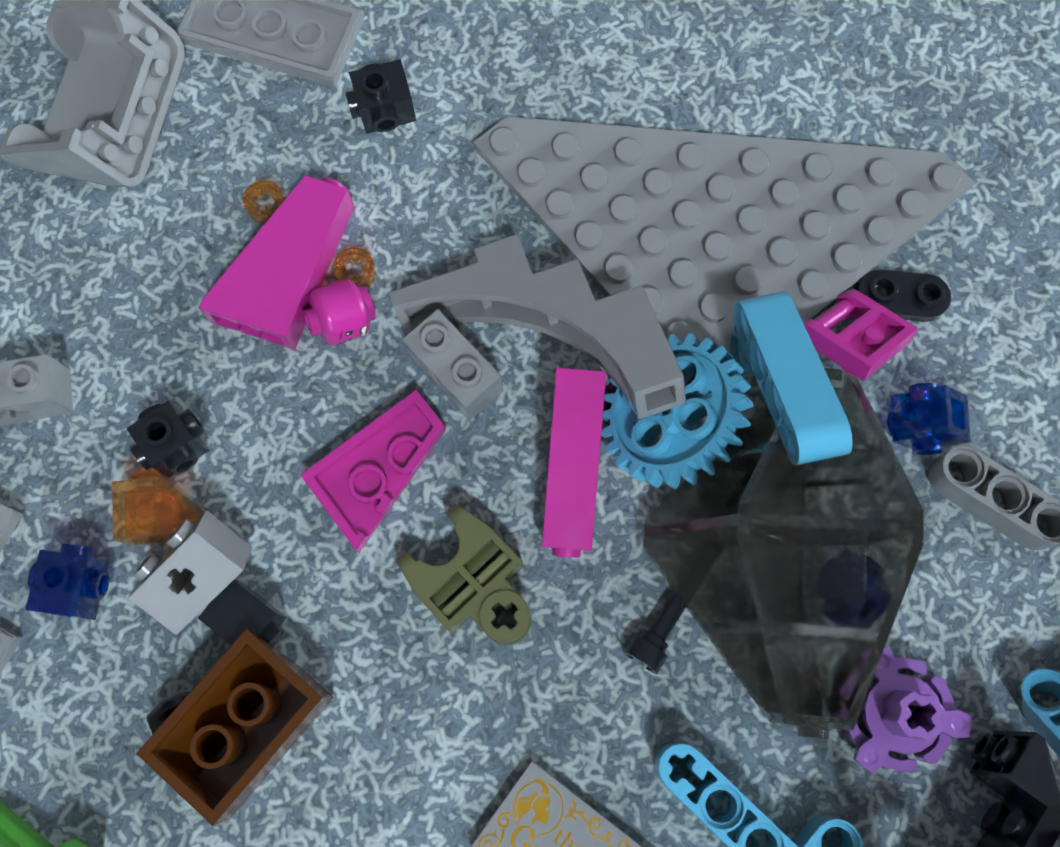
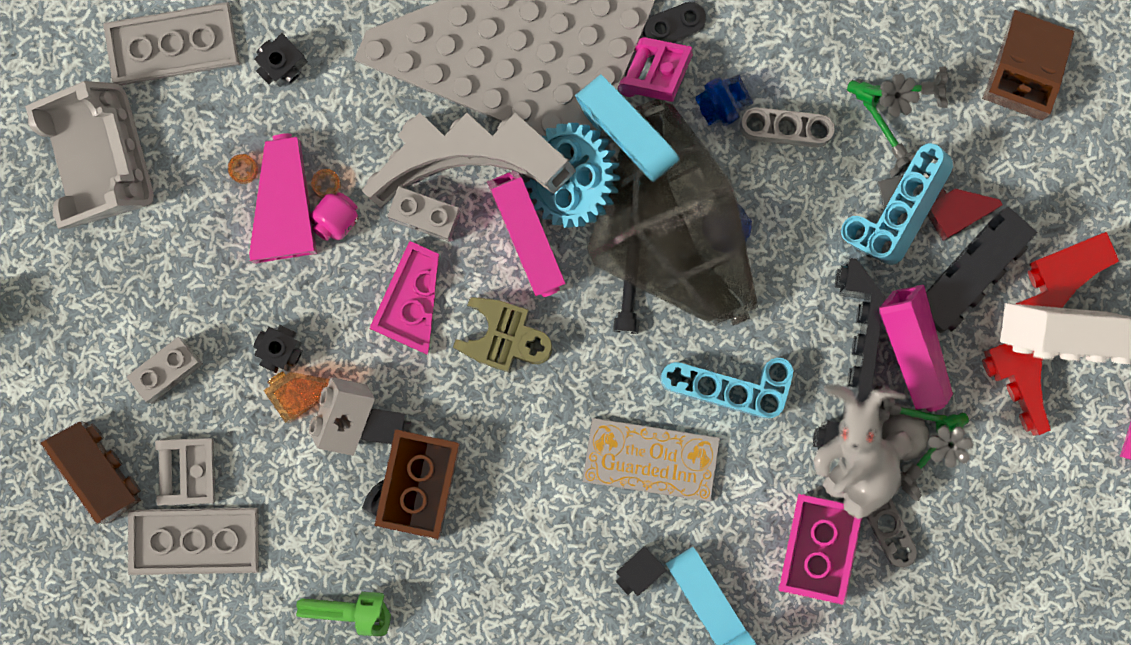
camera: 30 degrees left, 10 degrees up
(67, 582) = (282, 465): clear blue brick -> none
(886, 712) = (799, 281): medium lavender piece -> none

